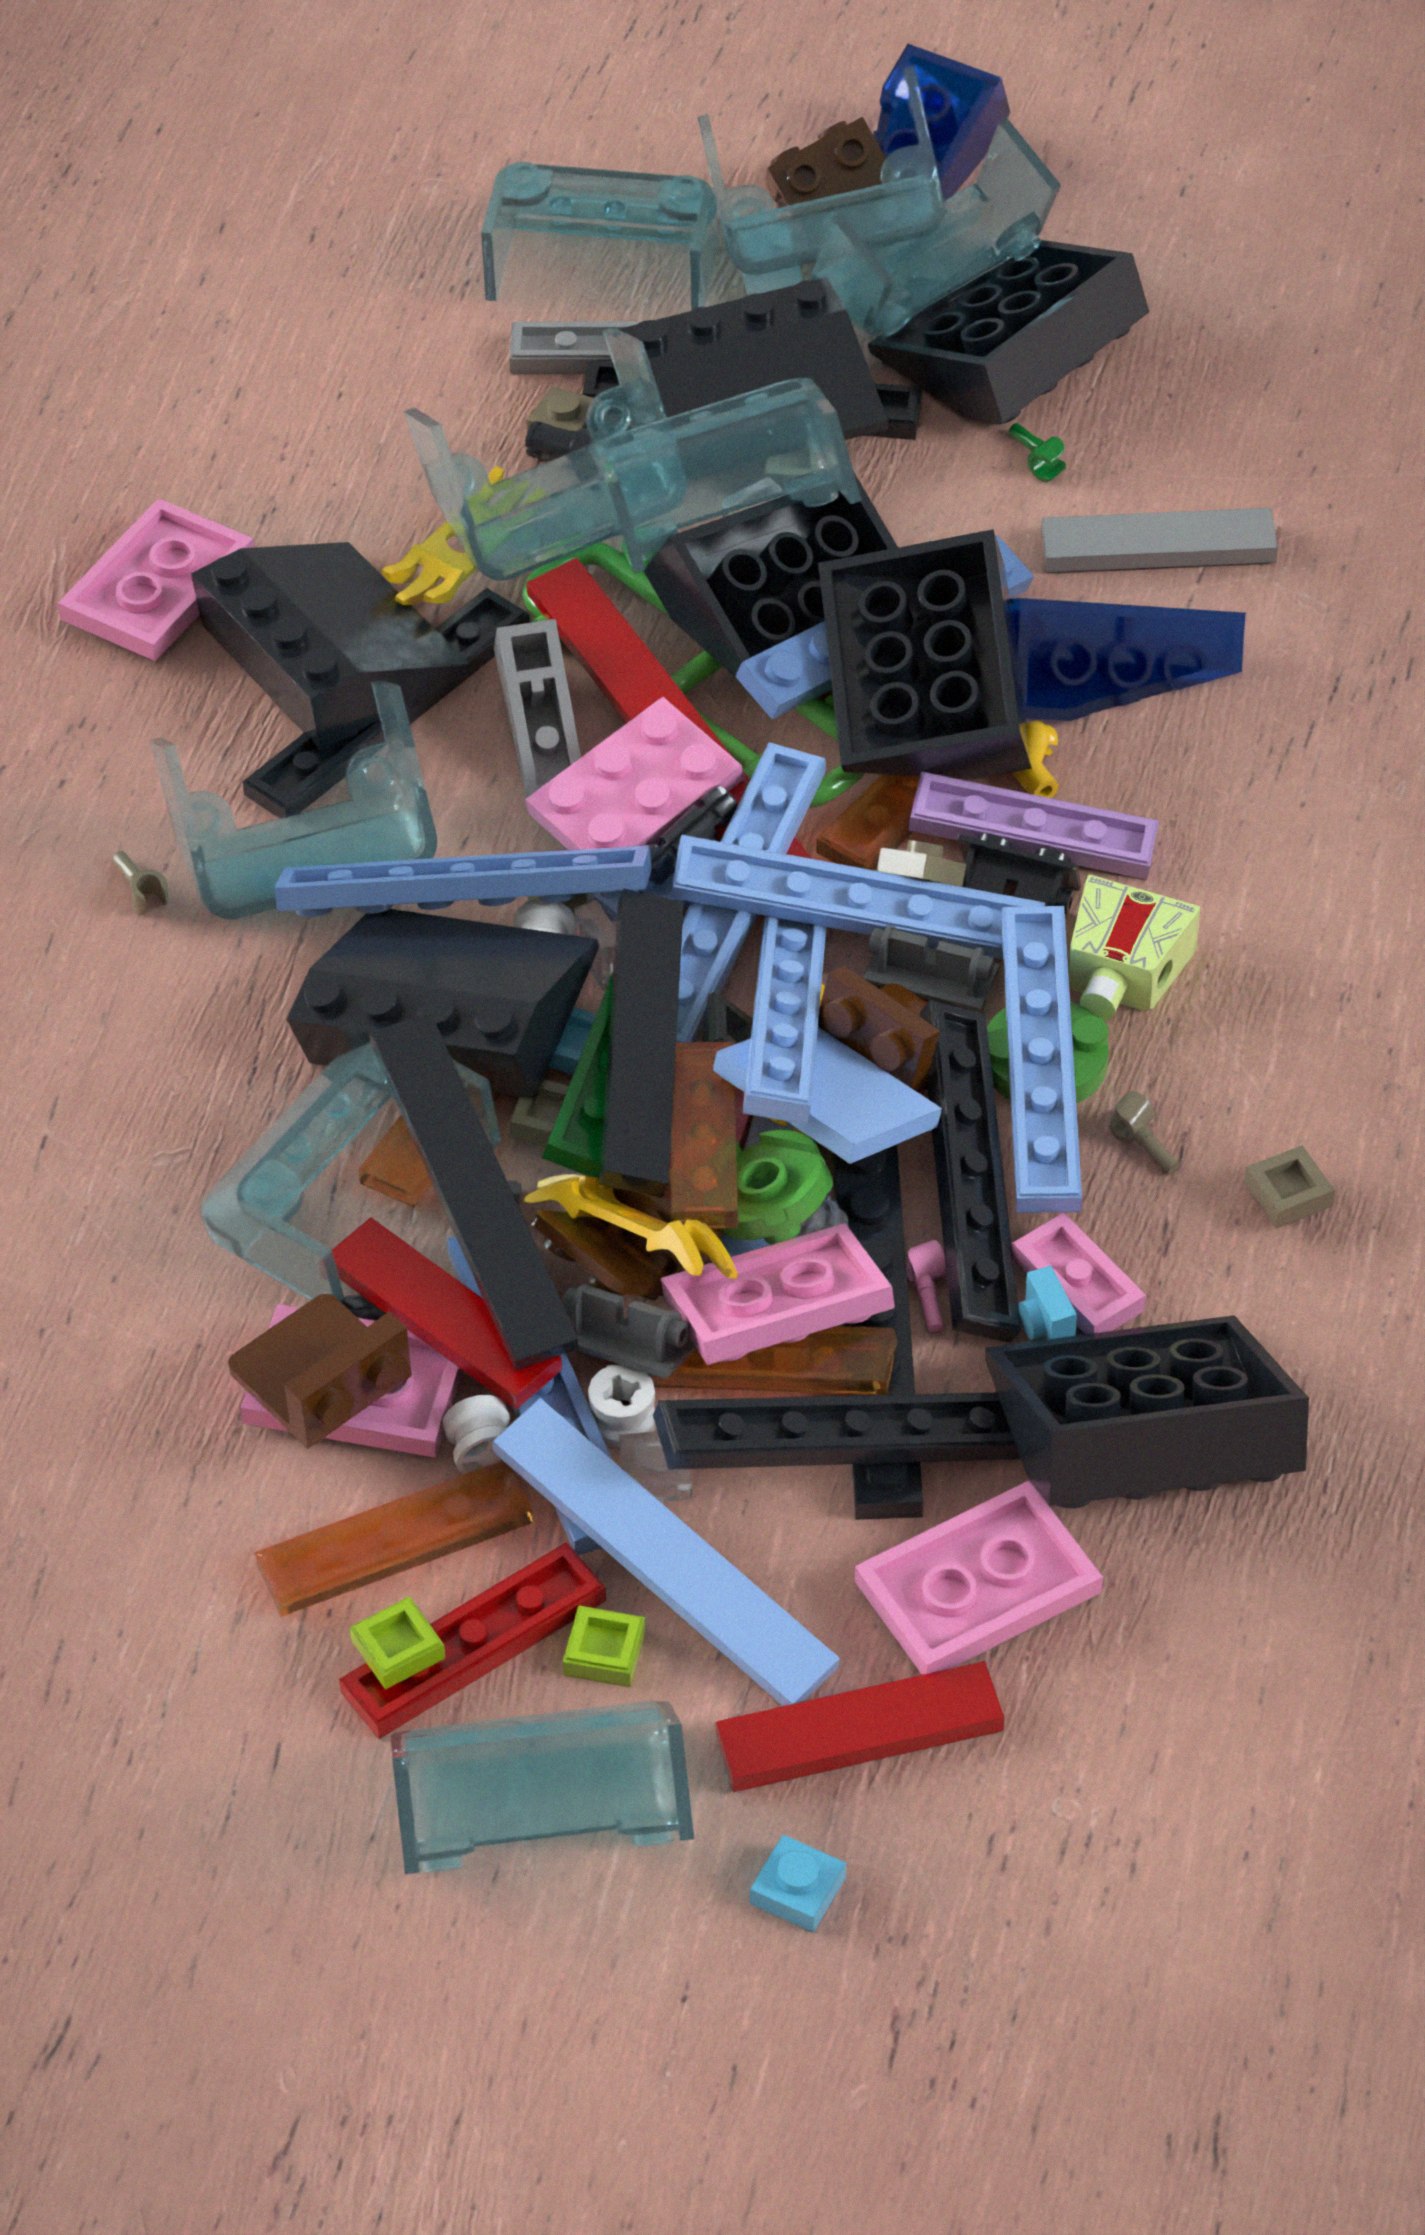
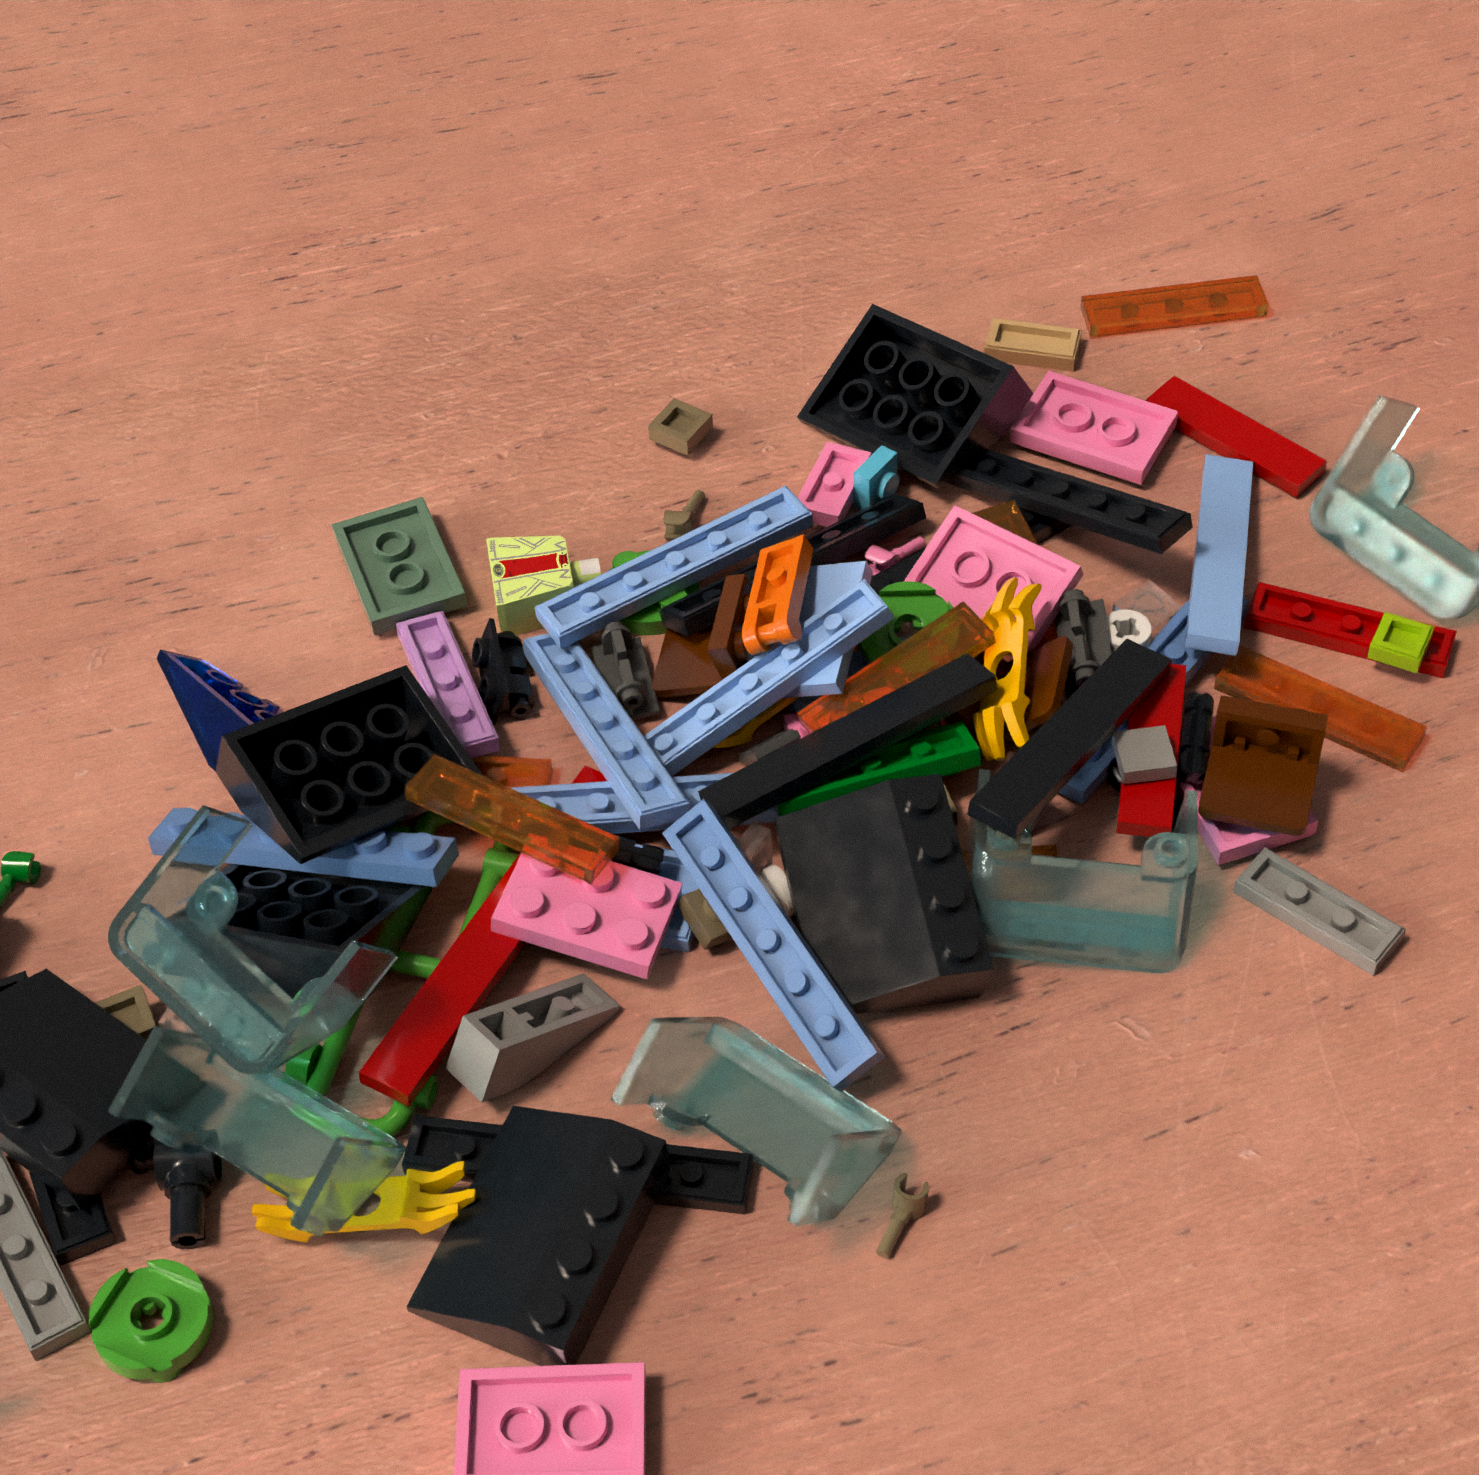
camera: 120 degrees left, 0 degrees up
(150, 1368) = (1319, 911): none -> light grey tile
(421, 1271) = (1144, 754): none -> light grey tile
(431, 1360) = (1195, 738): none -> black axle
(469, 418) = (158, 1351): none -> bright green plate
(472, 1428) = (1219, 679): white wheel -> none
(561, 409) = (140, 1236): dark tan plate -> none
(604, 1646) = (1293, 567): lime tile -> none
(755, 739) = (512, 818): none -> clear orange tile
(798, 1883) = (1349, 410): medium azure plate -> none
(869, 1051) = (777, 595): none -> orange plate
(922, 862) = (542, 711): dark tan plate -> none
(1143, 1816) = (1174, 306): none -> clear orange tile
(1158, 540) = (83, 764): light grey tile -> none
(1188, 1621) = (1033, 344): none -> tan tile
(1248, 855) = (398, 564): none -> sand green plate

